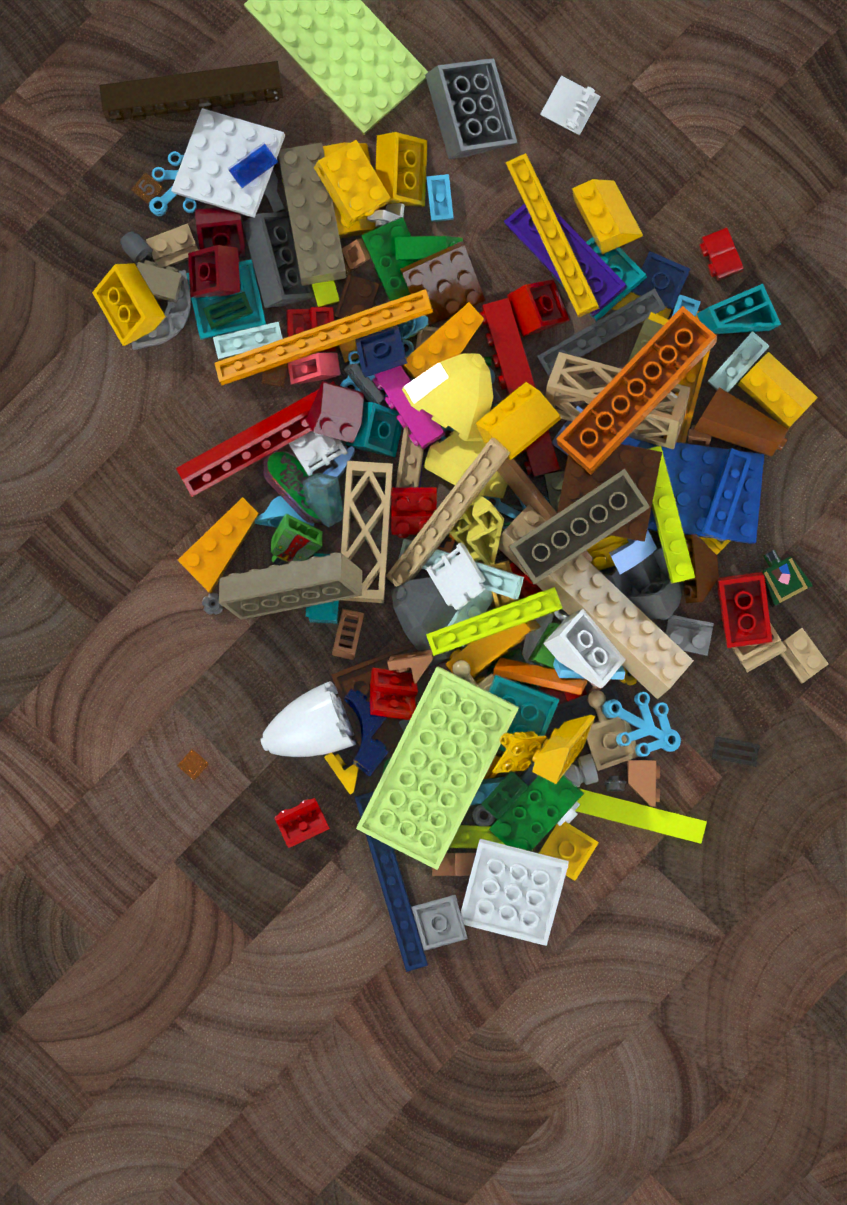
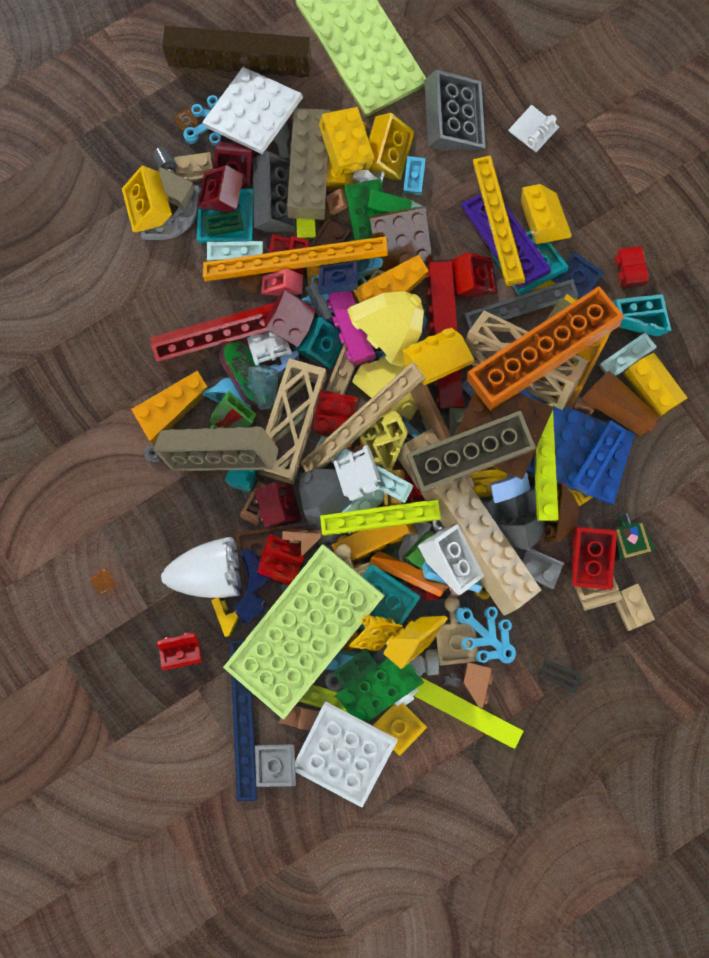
camera: 15 degrees right, 5 degrees down
(252, 165) = (270, 111): clear blue slope -> none
(372, 631) = (277, 504): none -> dark red slope

